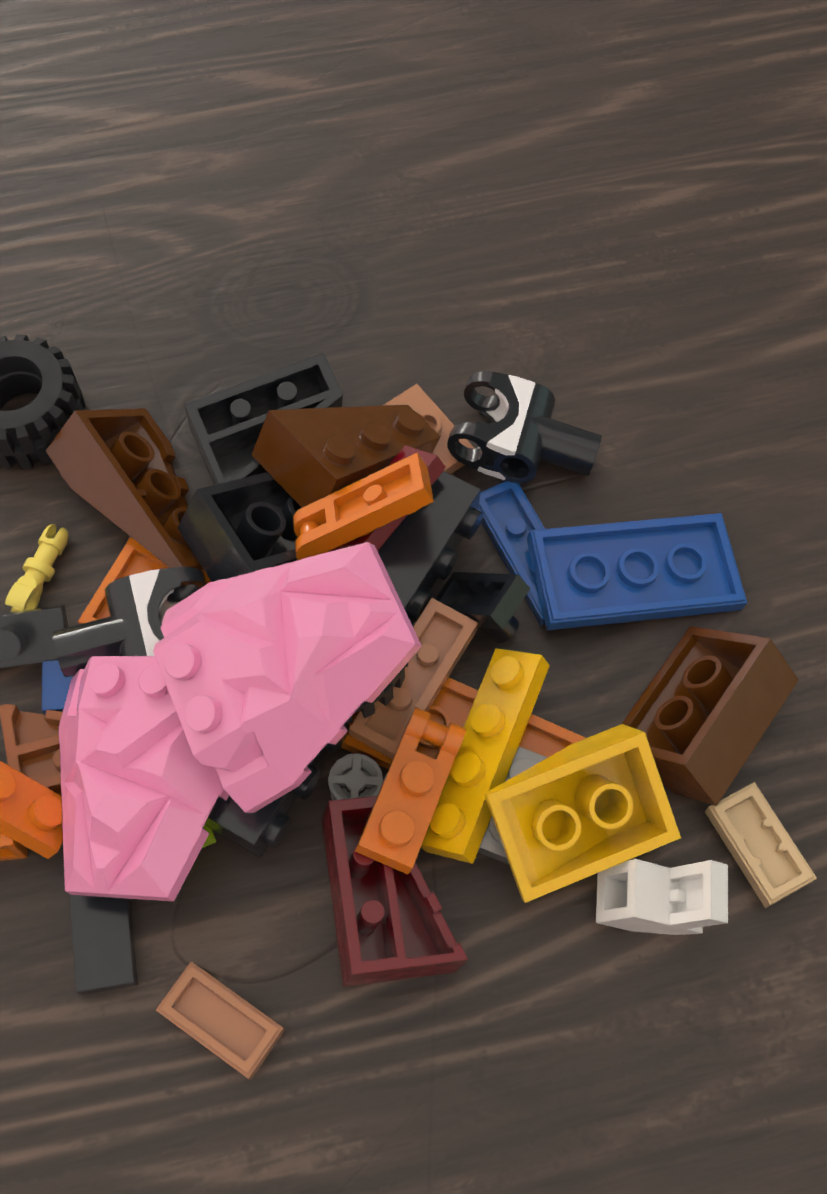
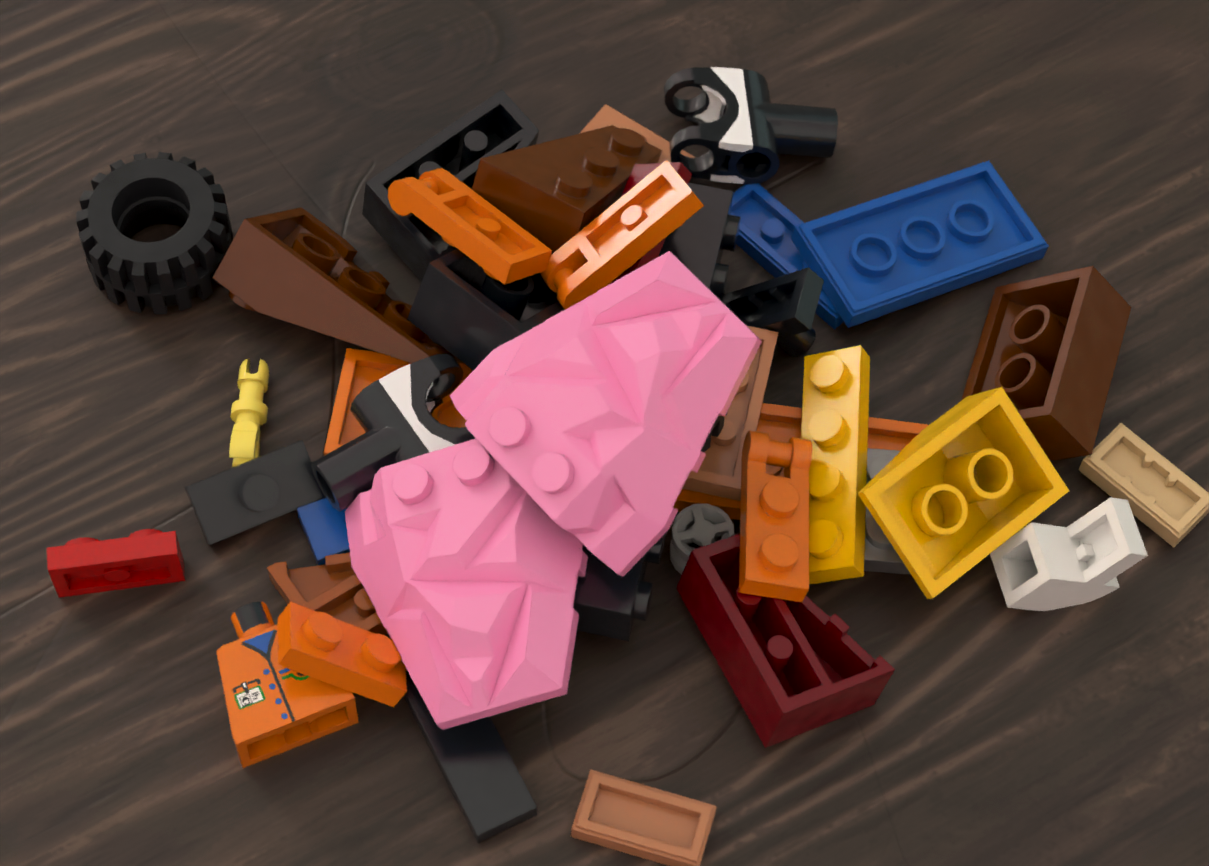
camera: 20 degrees left, 5 degrees down
(246, 465) = (470, 225): none -> orange plate

